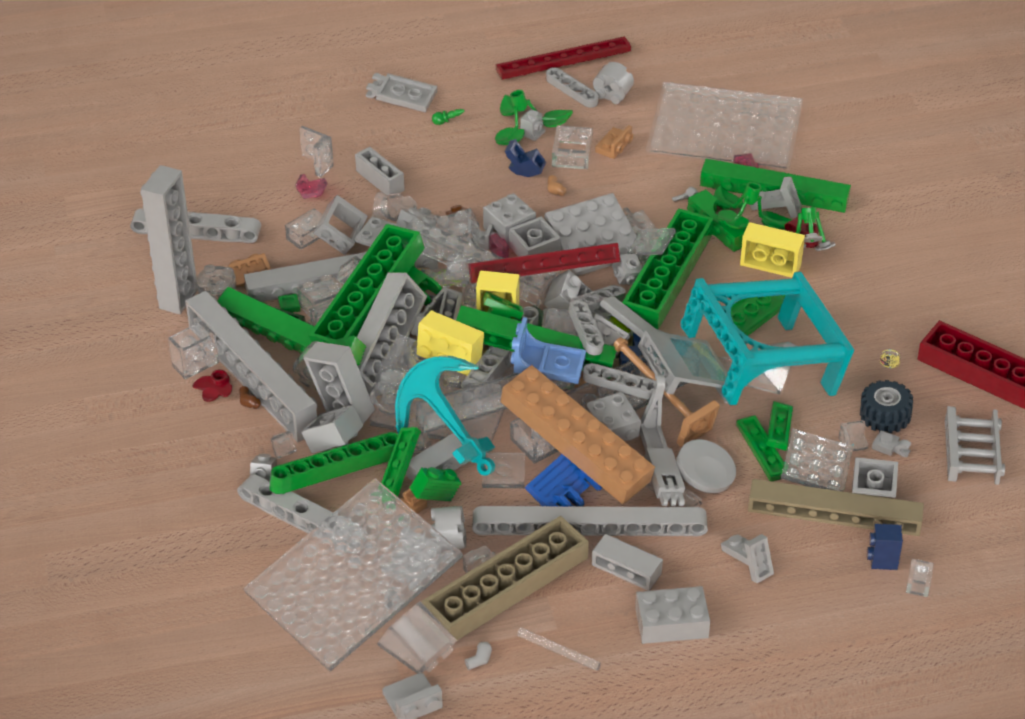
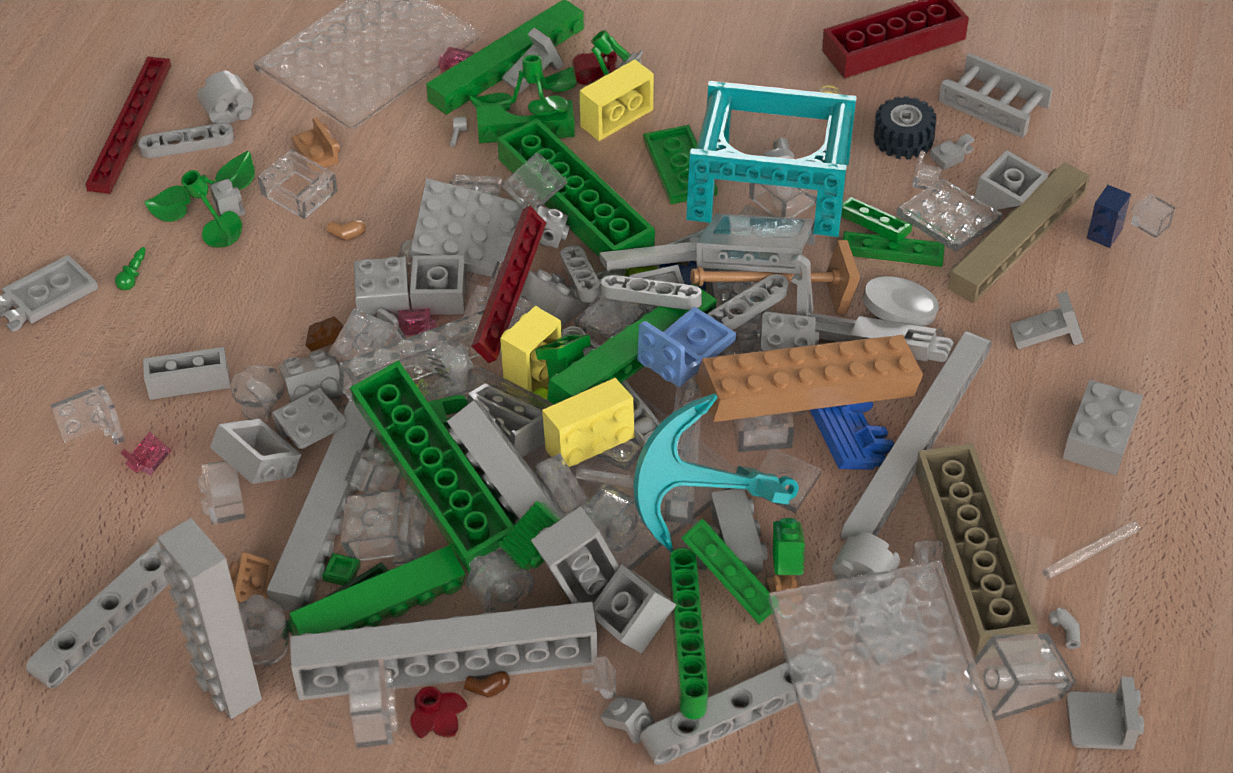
camera: 60 degrees left, 5 degrees up
(523, 163) = (288, 235): dark blue brick -> none
(627, 562) = (1003, 429): light grey brick -> none

